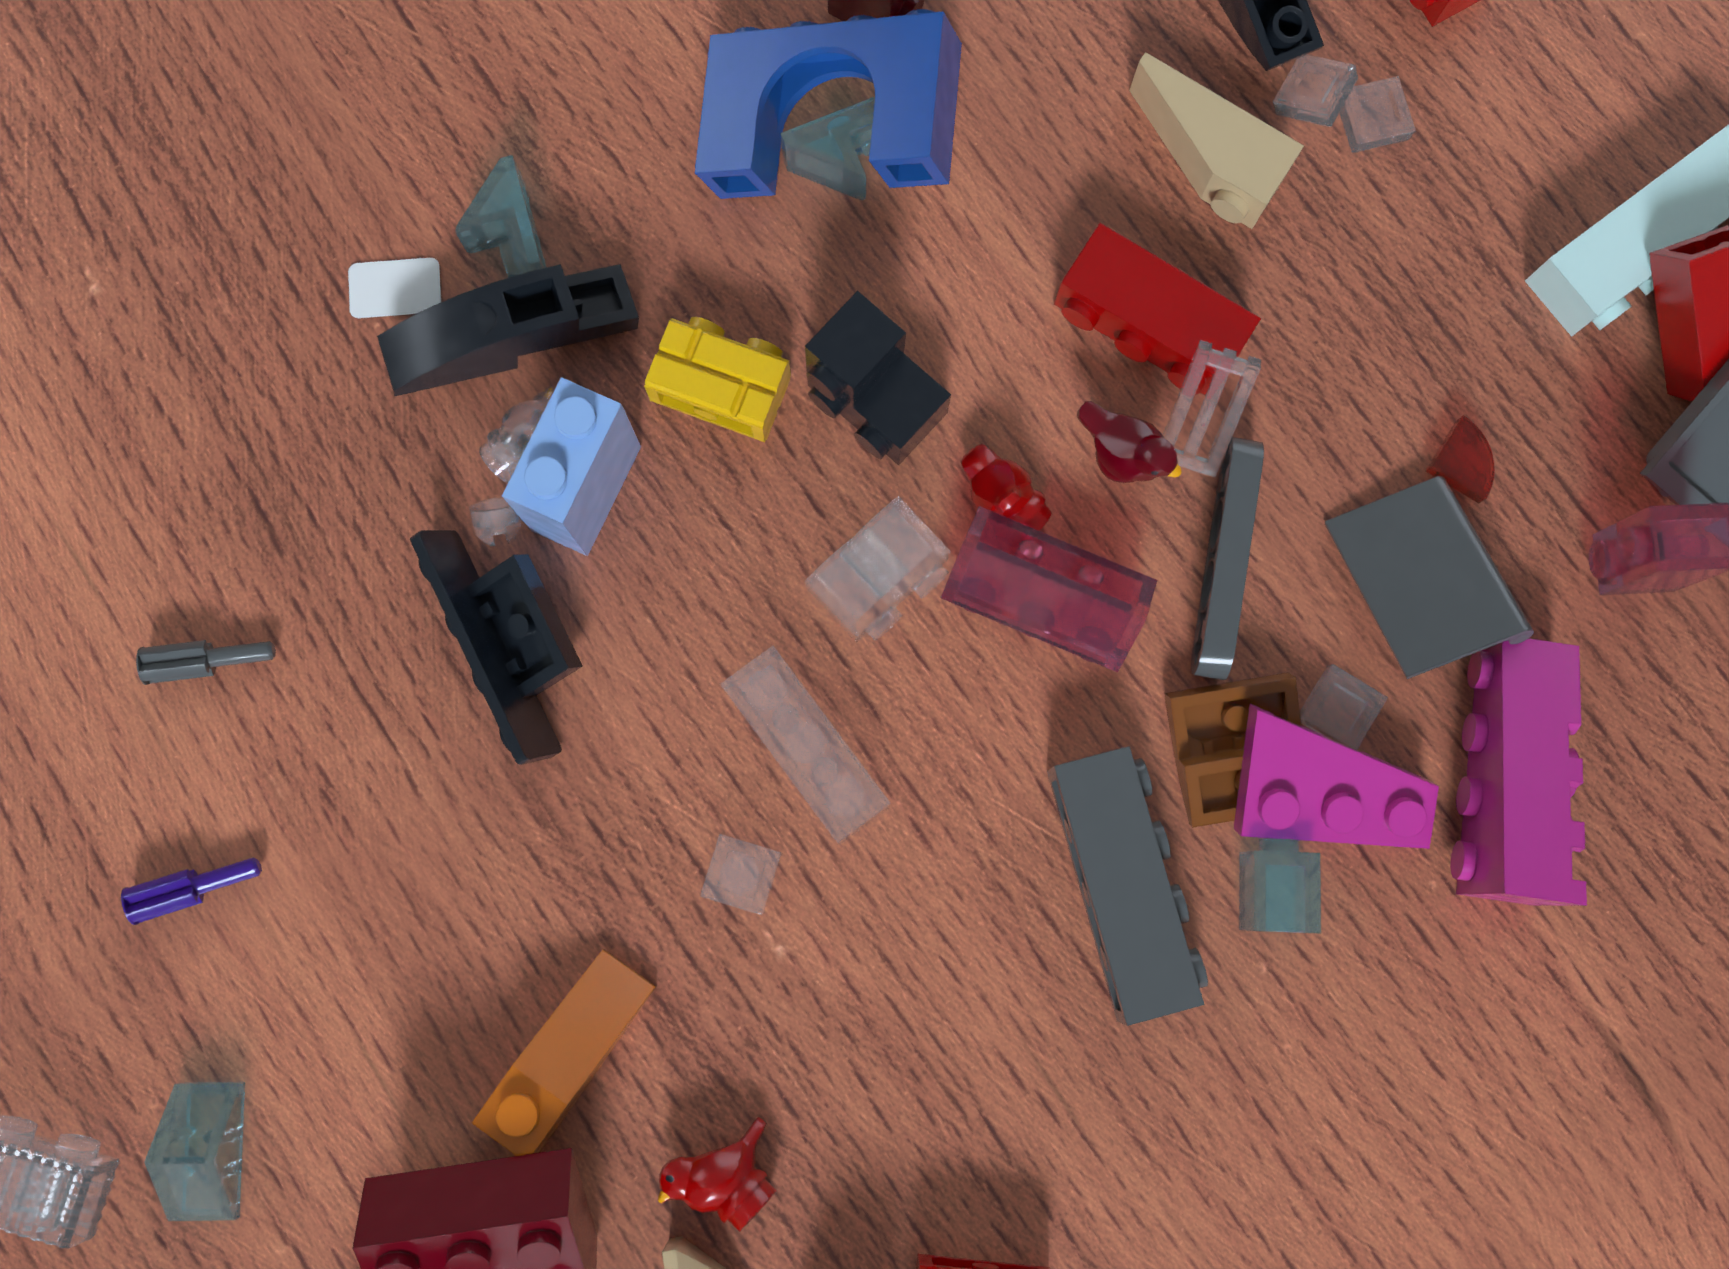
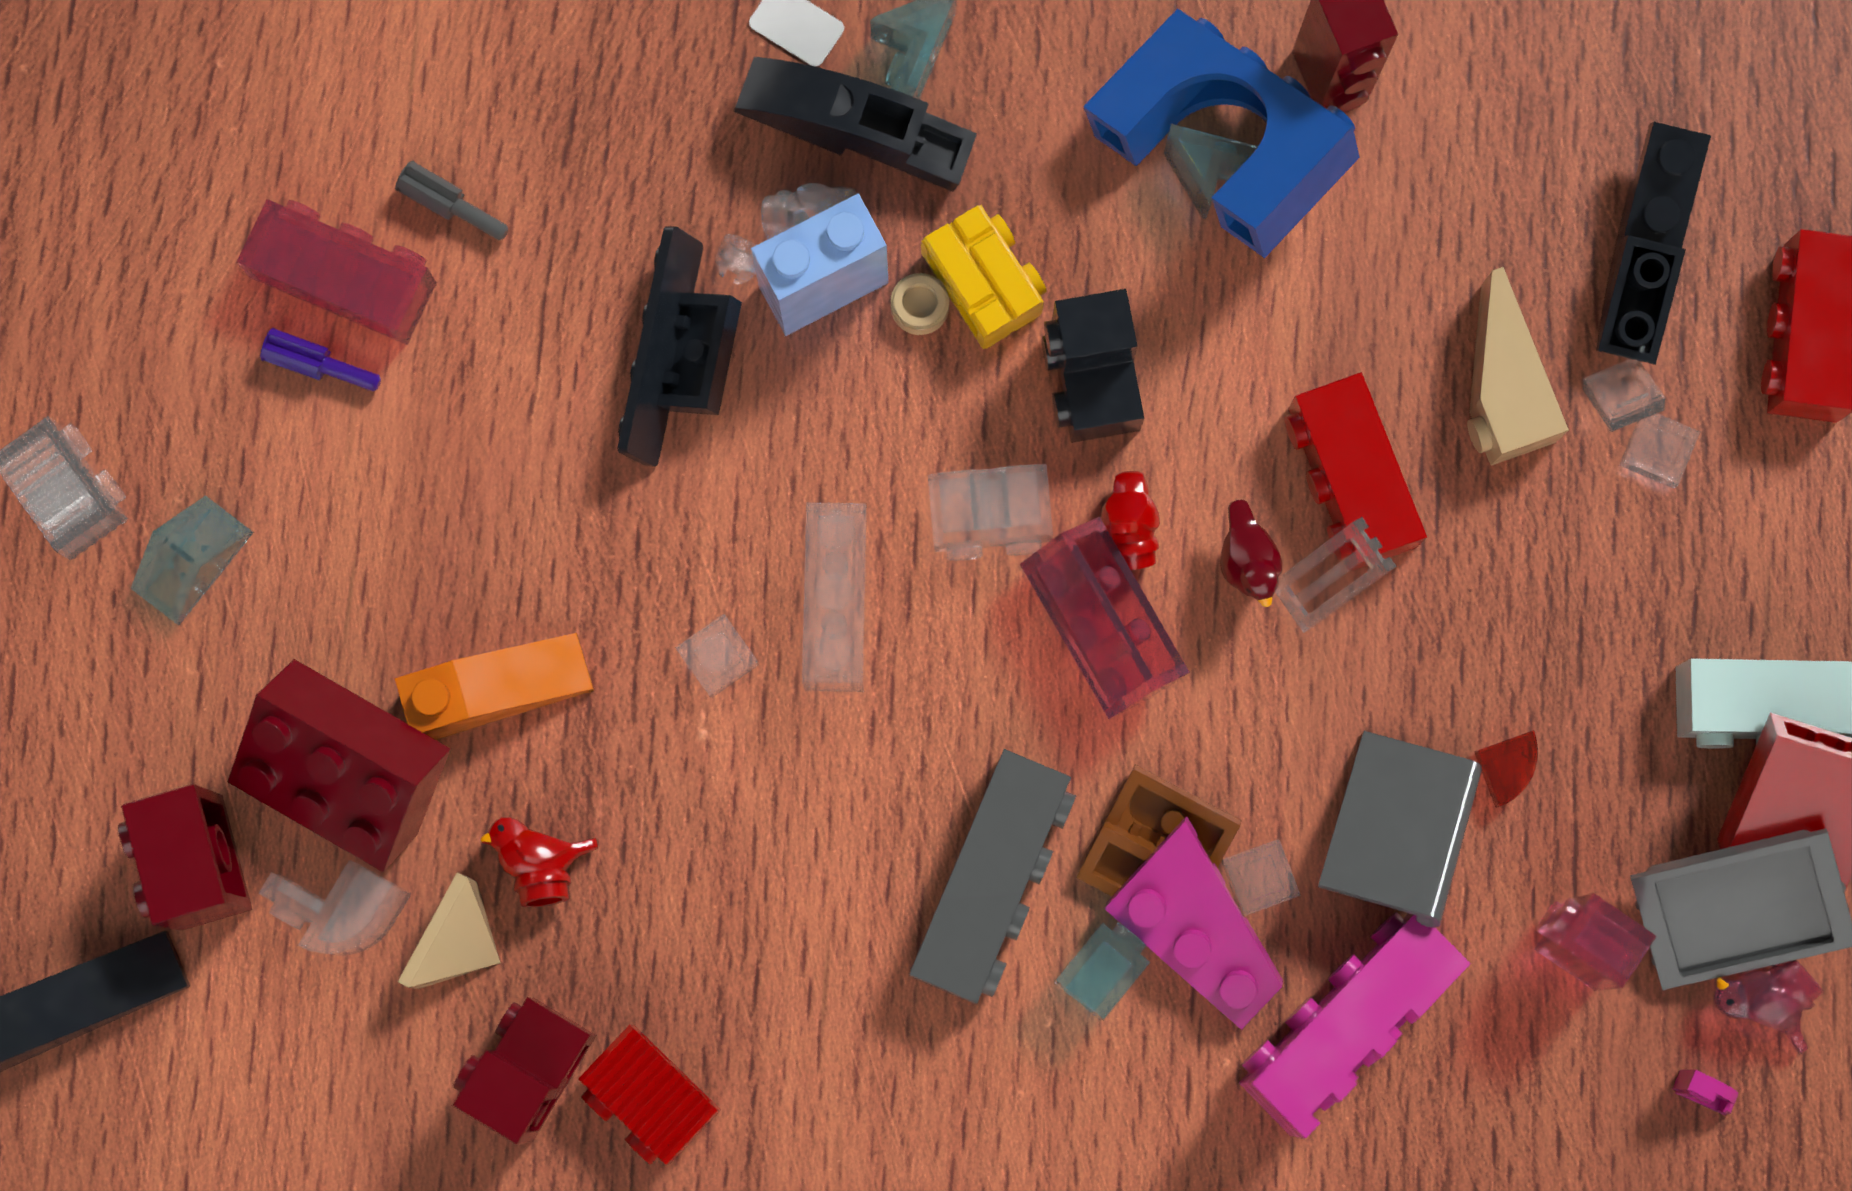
camera: 40 degrees right, 0 degrees up
(142, 793) = (338, 269): none -> clear pink brick
(682, 443) = (919, 304): none -> tan tile
(1227, 559) = (1261, 699): dark grey beam -> none

